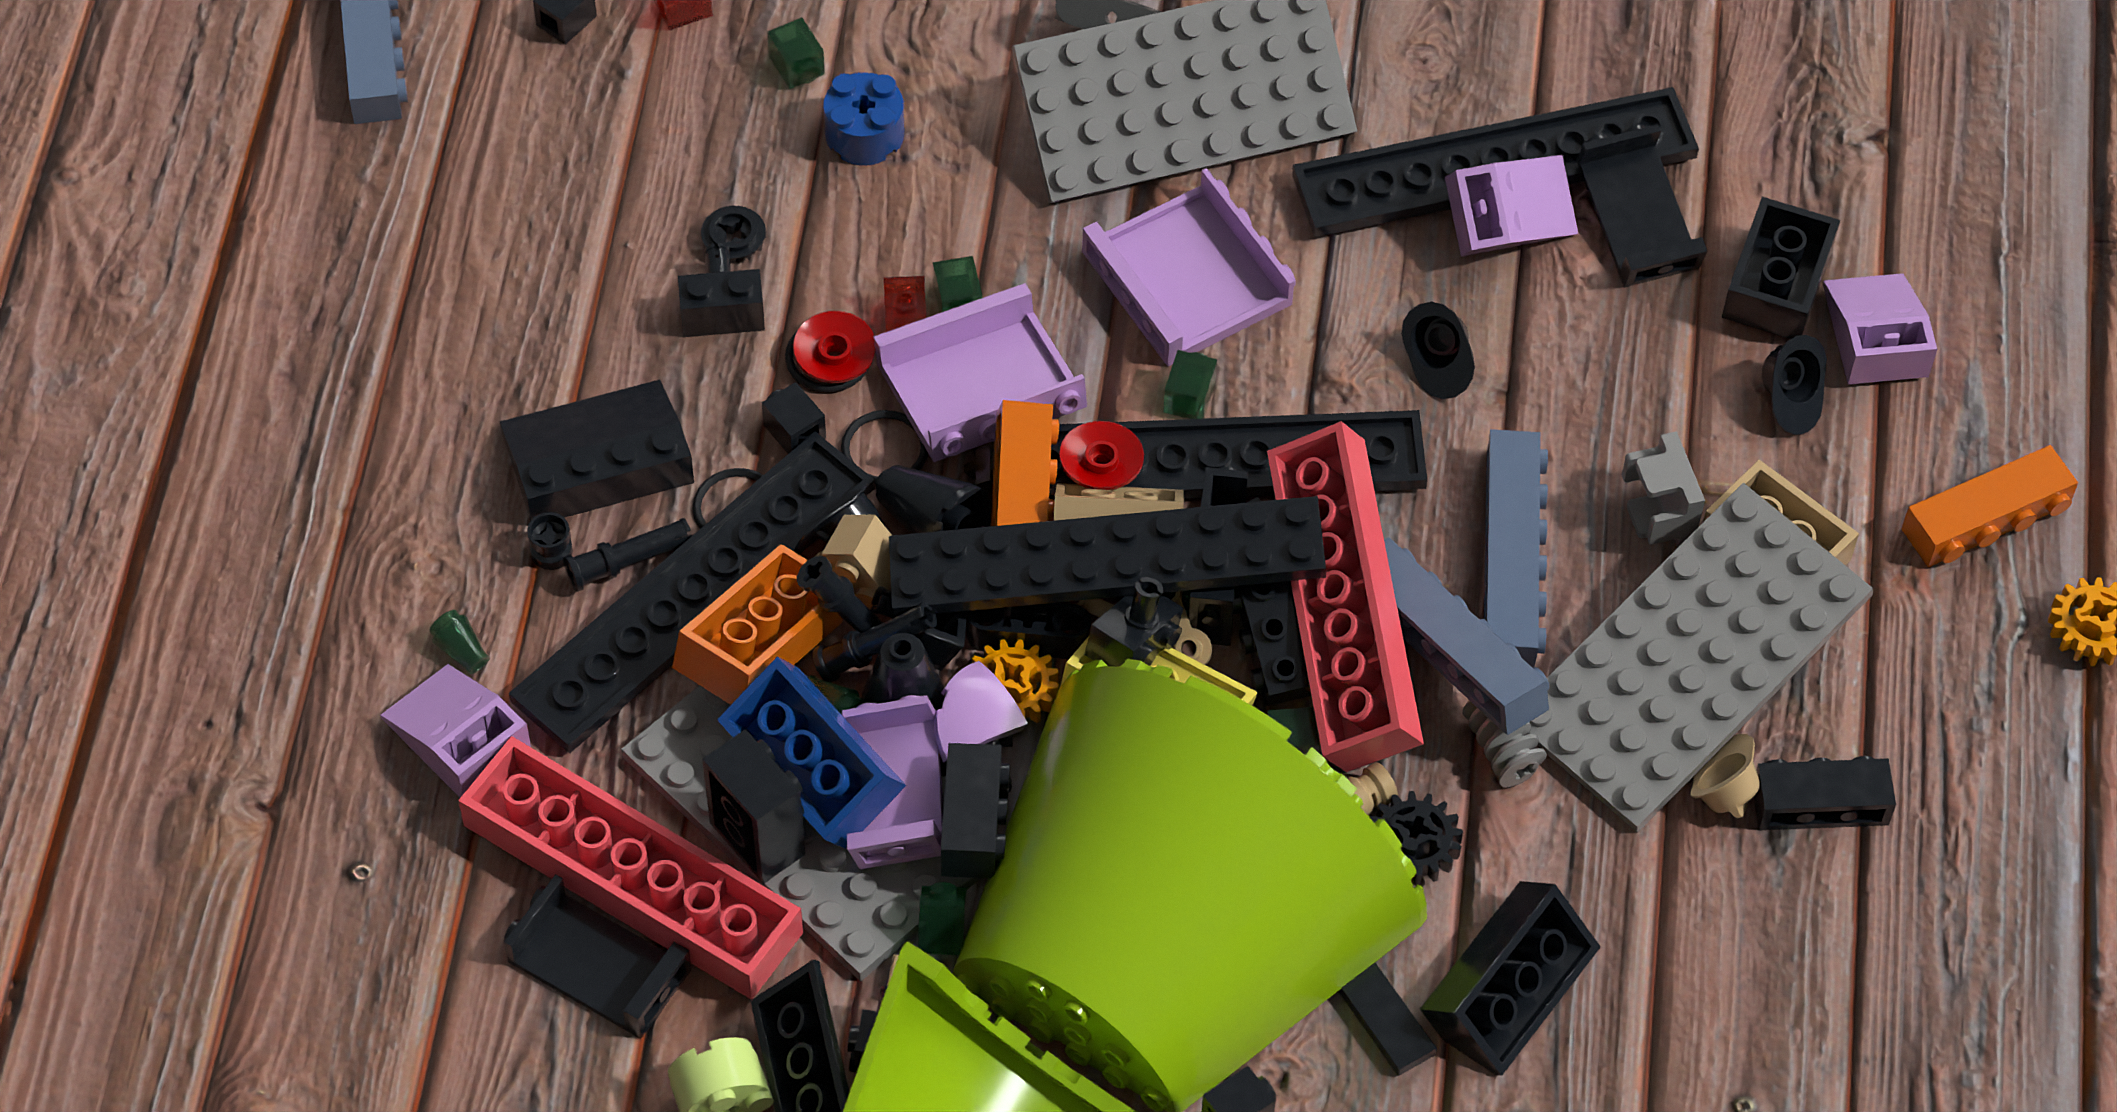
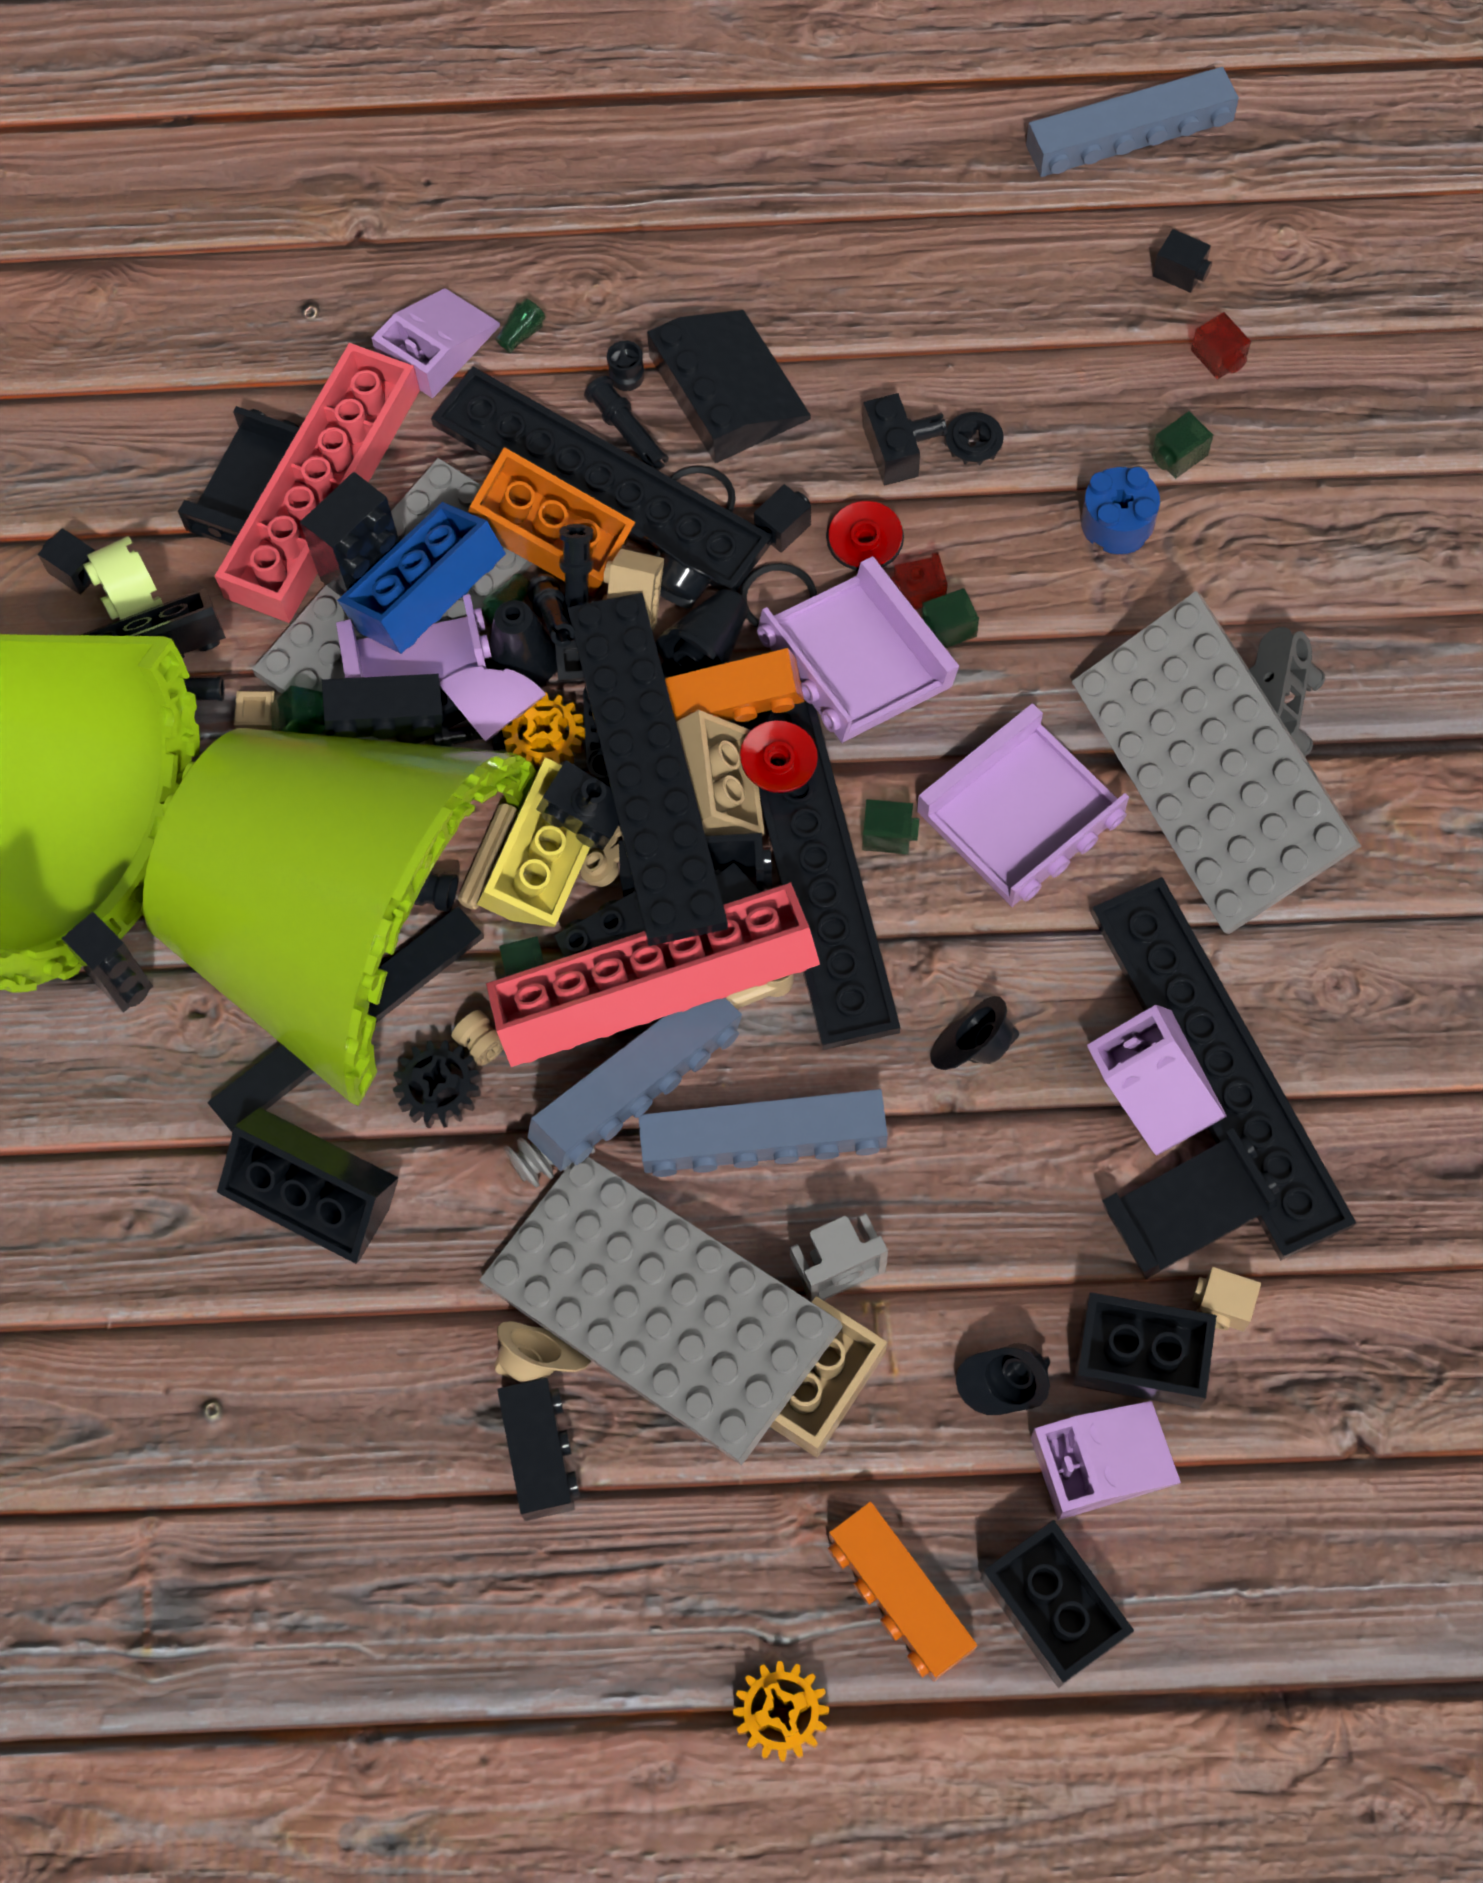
camera: 85 degrees right, 10 degrees up
(1734, 200) = (1228, 1297): none -> tan brick
(2014, 381) = (1056, 1603): none -> black brick

